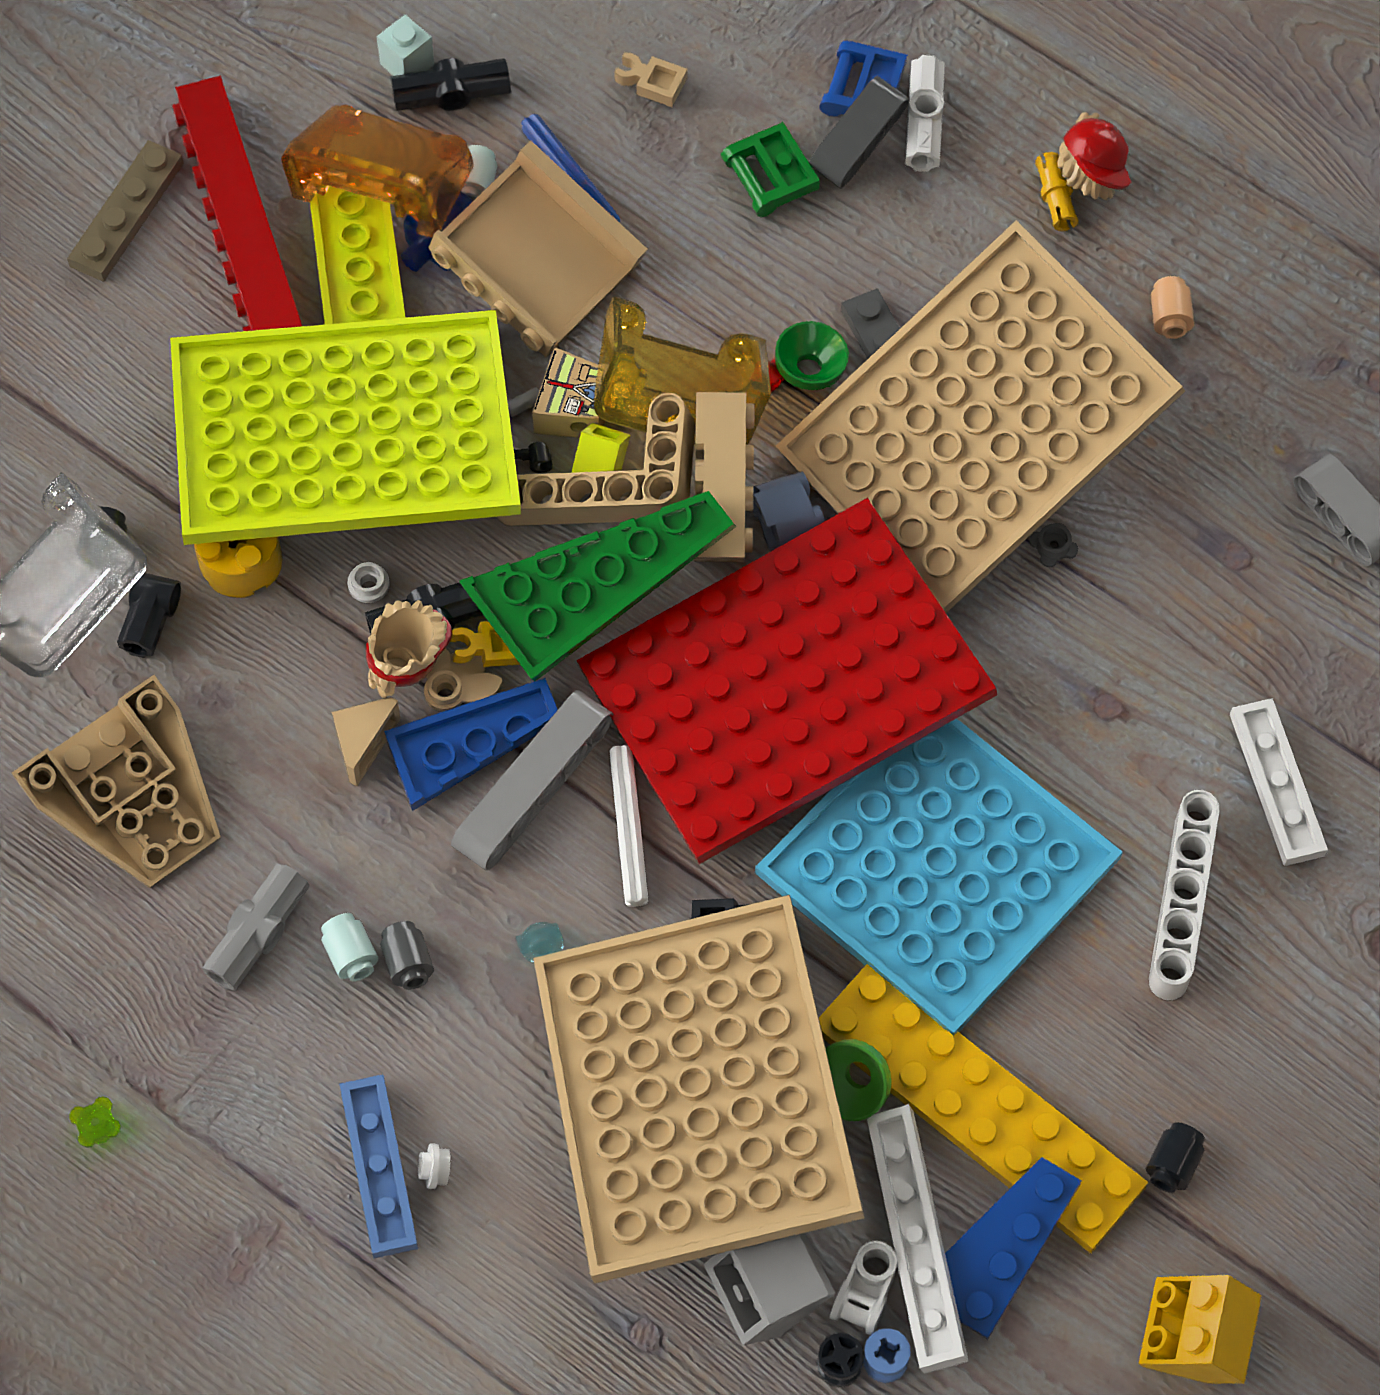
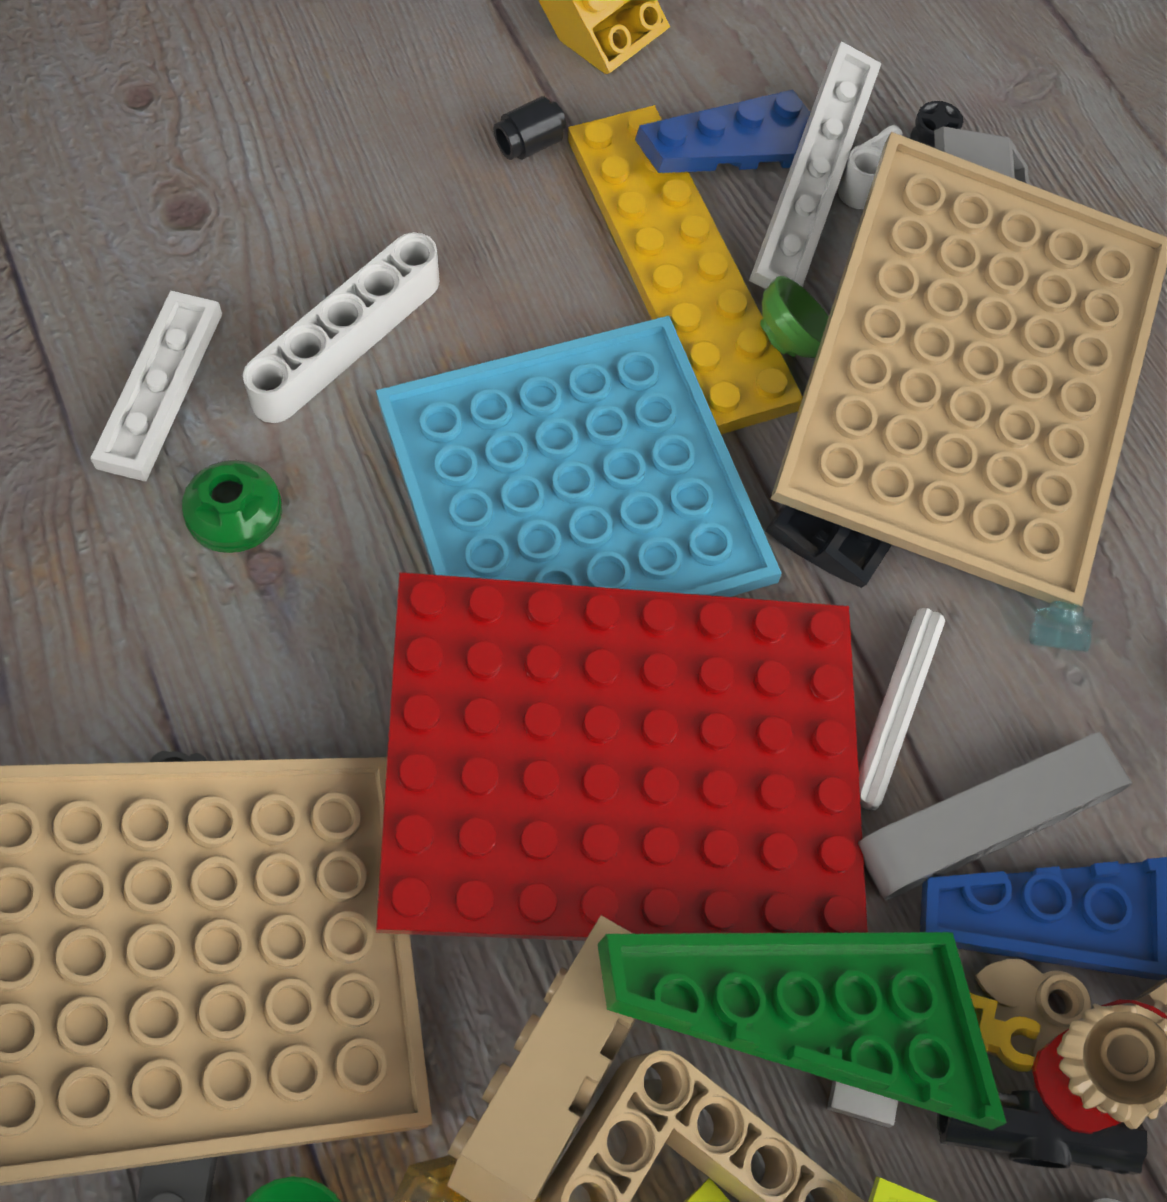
camera: 155 degrees left, 0 degrees up
(785, 509) = (478, 1016): sand blue cylinder -> none
(888, 1365) = (892, 107): medium blue wheel -> none
(1159, 747) = (234, 524): none -> green piece

